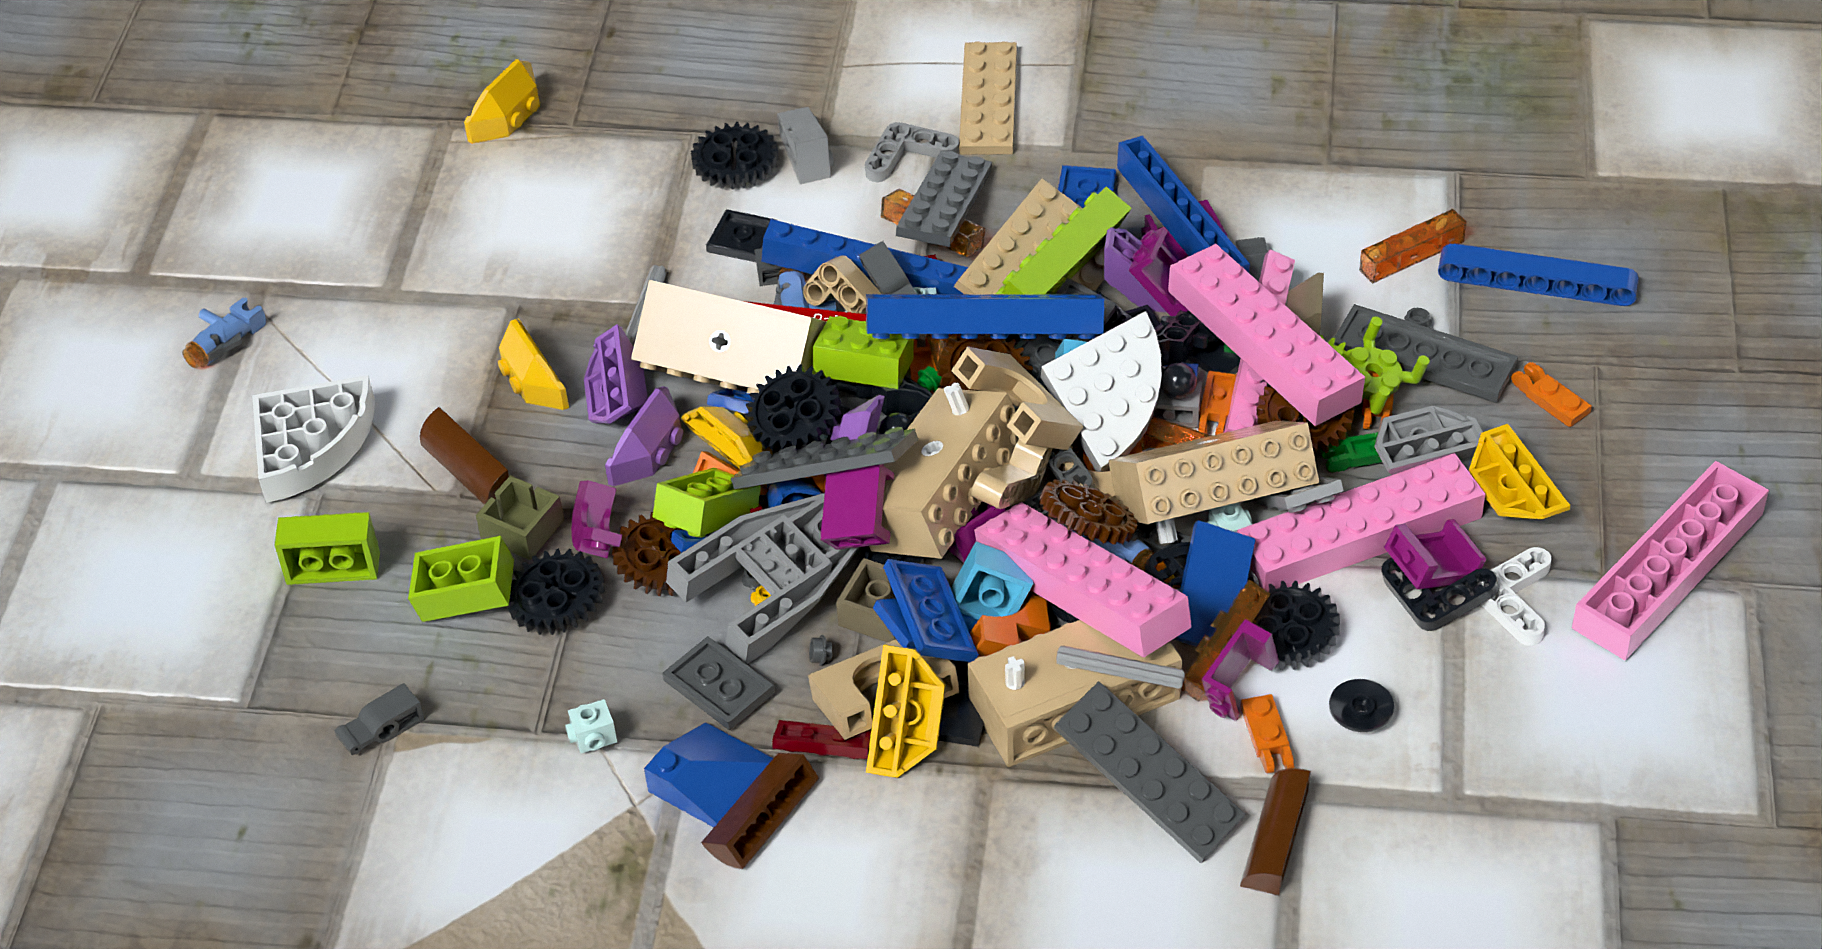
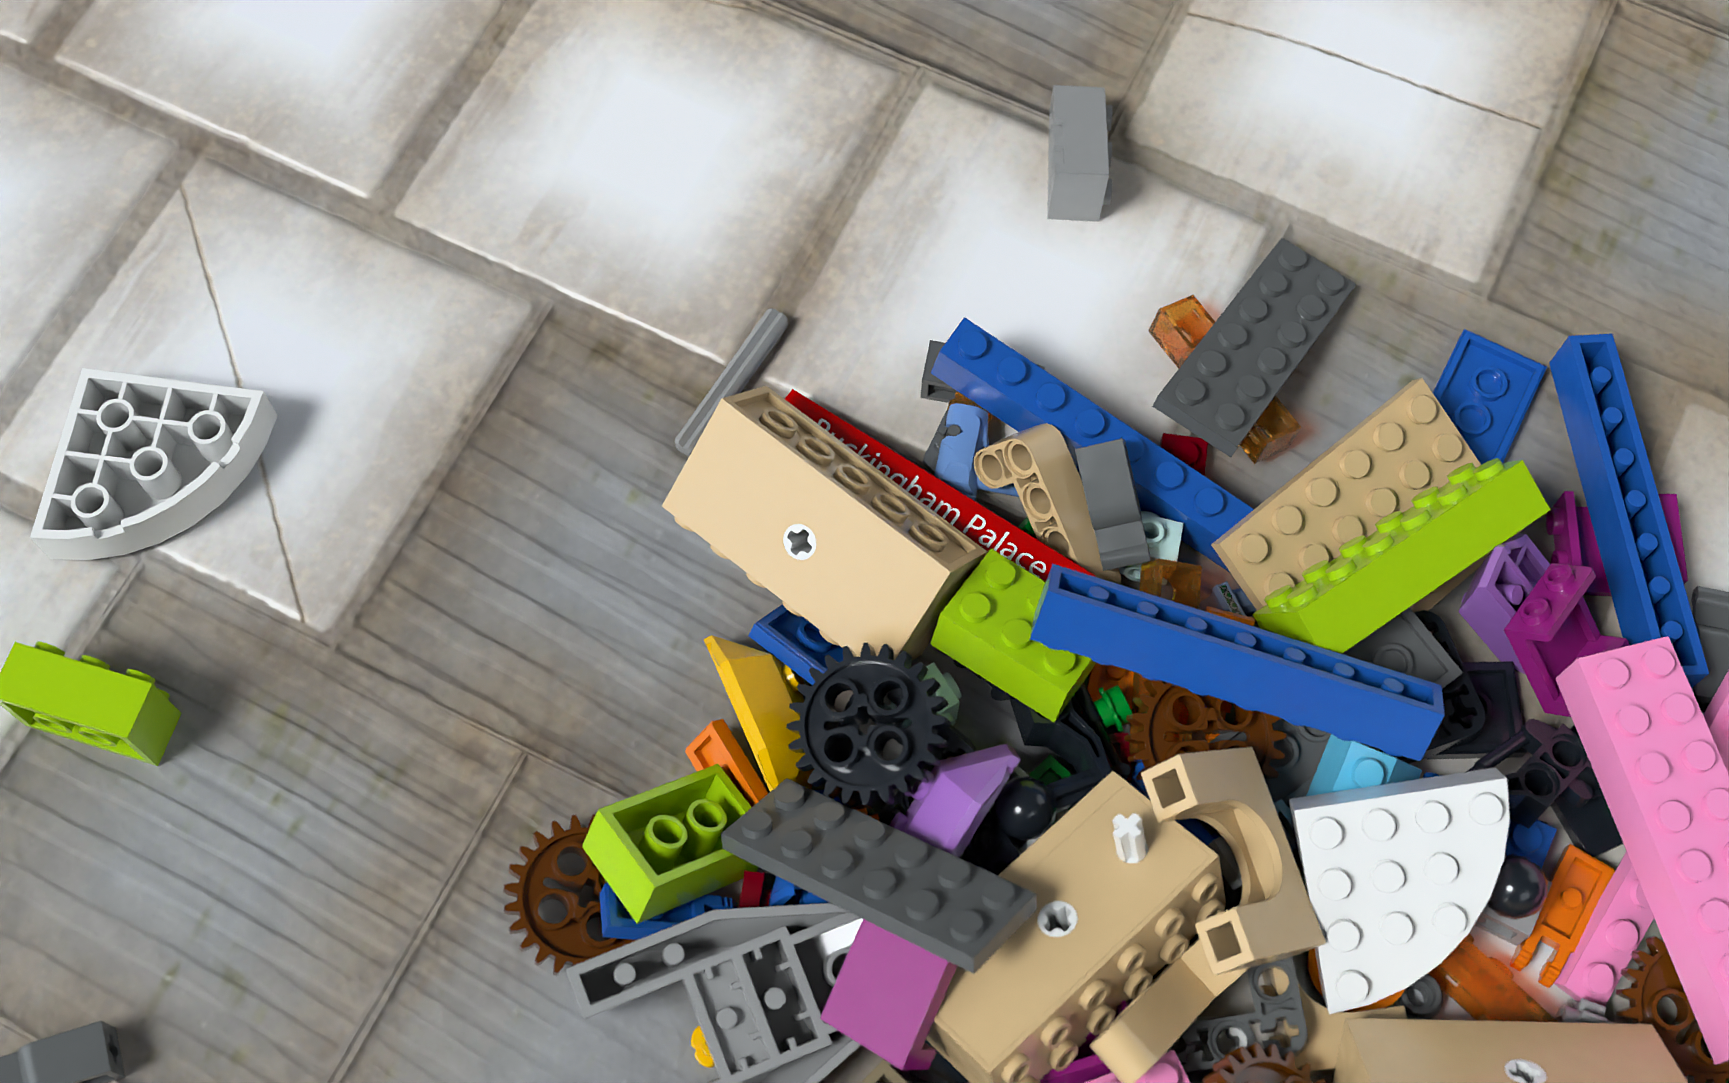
camera: 15 degrees right, 20 degrees up
(223, 333) = (108, 214): medium blue piece -> none
(461, 579) = (259, 845): lime brick -> none
(462, 455) = (361, 590): reddish brown brick -> none
(521, 523) = (399, 755): olive piece -> none
(529, 370) = (516, 444): yellow wedge -> none
(555, 591) = (361, 940): black gear -> none
(591, 519) = (497, 800): magenta arch -> none
(612, 379) = (628, 533): medium lavender wedge -> none
(646, 440) = (644, 658): medium lavender wedge -> none
(715, 154) = (1002, 147): black gear -> none
(738, 235) = (925, 291): black tile -> none
(906, 139) = (1237, 197): light grey beam -> none
(988, 98) = (1390, 153): tan plate -> none

